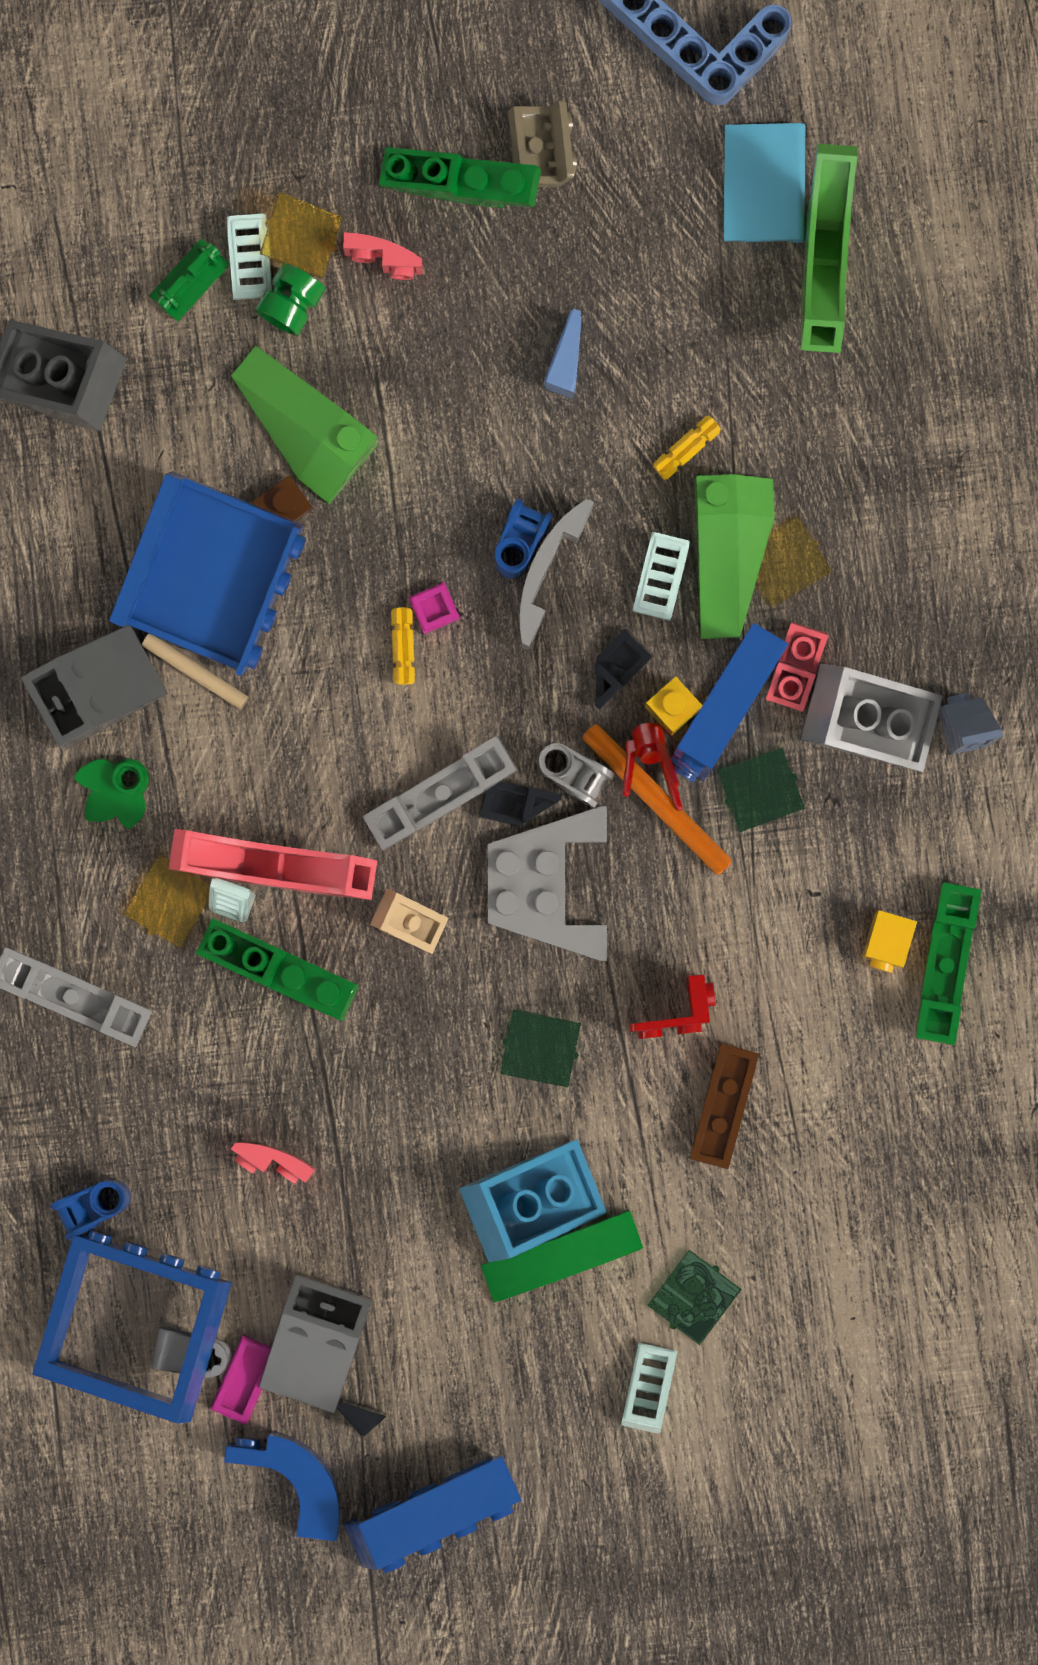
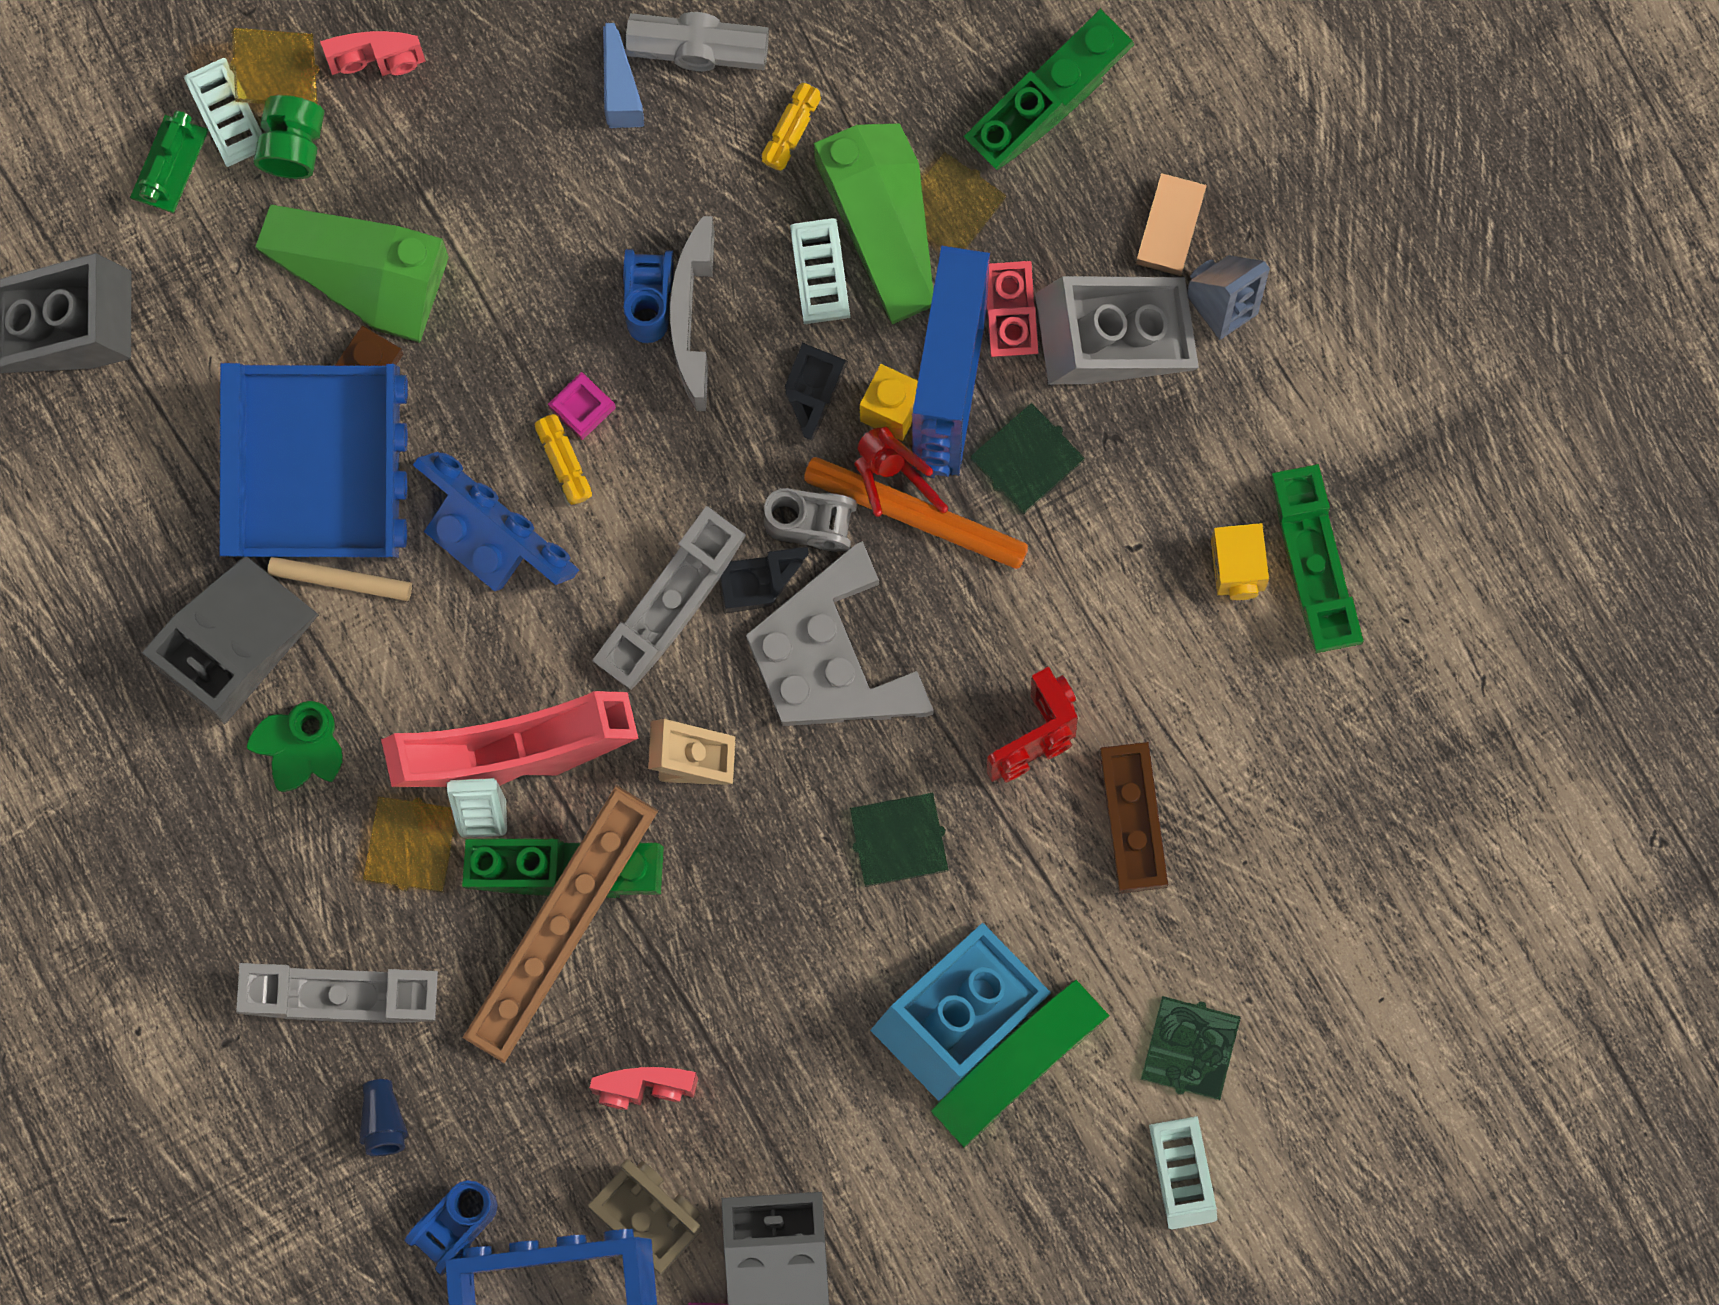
camera: 15 degrees left, 10 degrees down
(67, 1105) = (381, 1120): none -> dark blue cone
(232, 1252) = (639, 1204): none -> dark tan bracket
(258, 1015) = (560, 924): none -> medium nougat tile
(320, 679) = (483, 531): none -> blue bracket
(640, 348) = (697, 41): none -> light grey piece
(899, 503) = (1051, 92): none -> green slope
(950, 648) = (1171, 224): none -> light nougat tile

